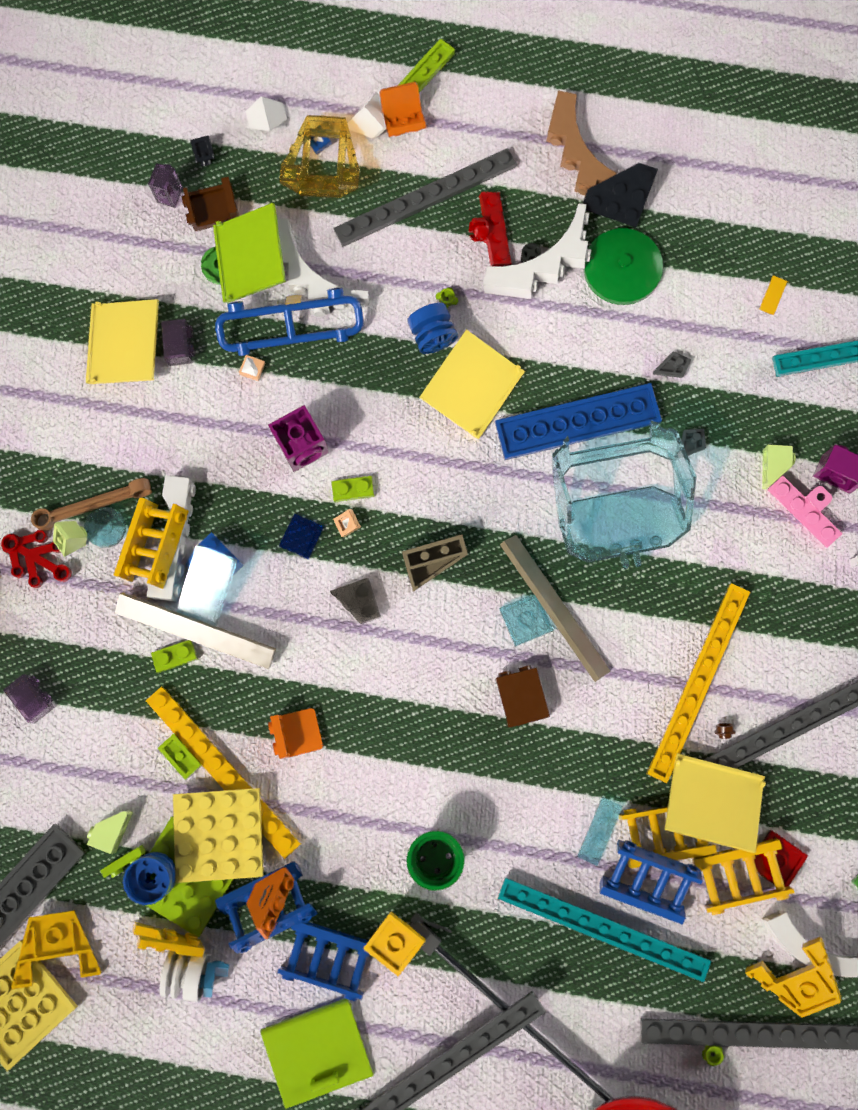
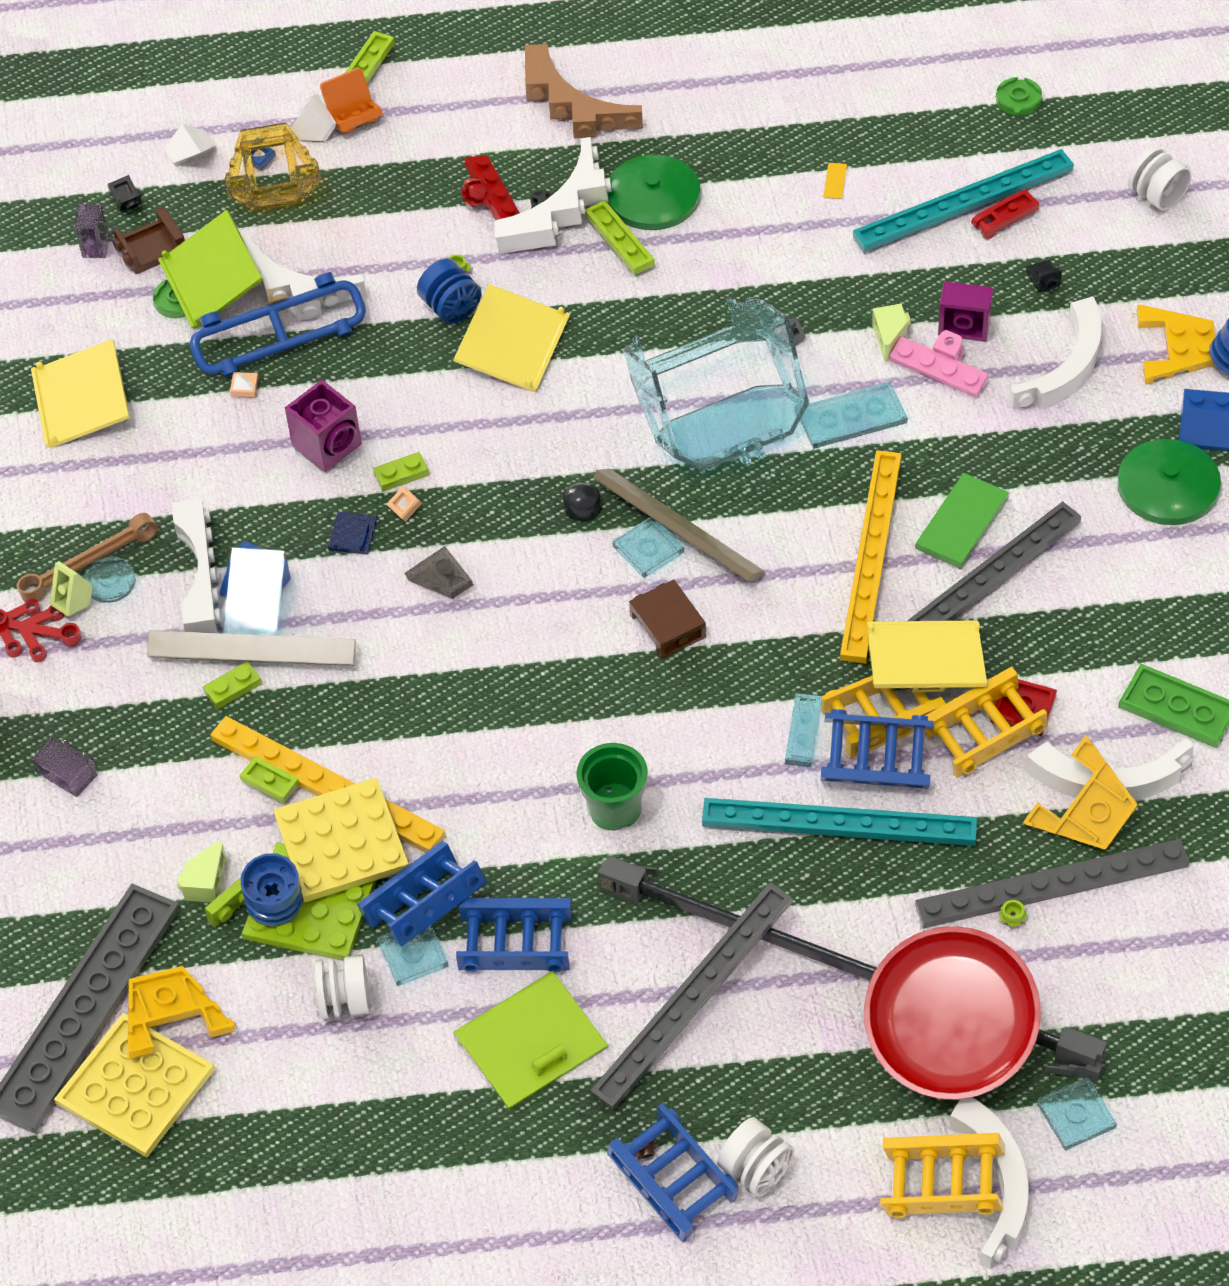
camera: 15 degrees left, 25 degrees down
(136, 539) = (154, 567): yellow fence -> none
(167, 939) = (317, 944): yellow wing -> none
(177, 342) = (147, 378): clear purple brick -> none
(213, 969) = (378, 982): dark azure bracket -> none
(257, 957) = (414, 959): none -> clear light blue tile
(269, 900) = (424, 869): orange slope -> none
(295, 733) = (405, 721): orange bracket -> none
(394, 944) = (590, 880): yellow plate -> none
(424, 197) = (400, 181): dark grey plate -> none
(431, 559) = (517, 508): dark tan wedge -> none
(485, 561) = (582, 501): none -> black hair
(578, 420) = (605, 362): blue plate -> none
(583, 307) = (619, 237): none -> lime plate
(622, 194) = (629, 121): black plate -> none
(673, 366) = (741, 268): dark grey piece -> none
(723, 538) = (853, 415): none -> clear light blue tile
(724, 730) = (917, 593): reddish brown plate -> none
(780, 667) = (962, 520): none -> bright green tile

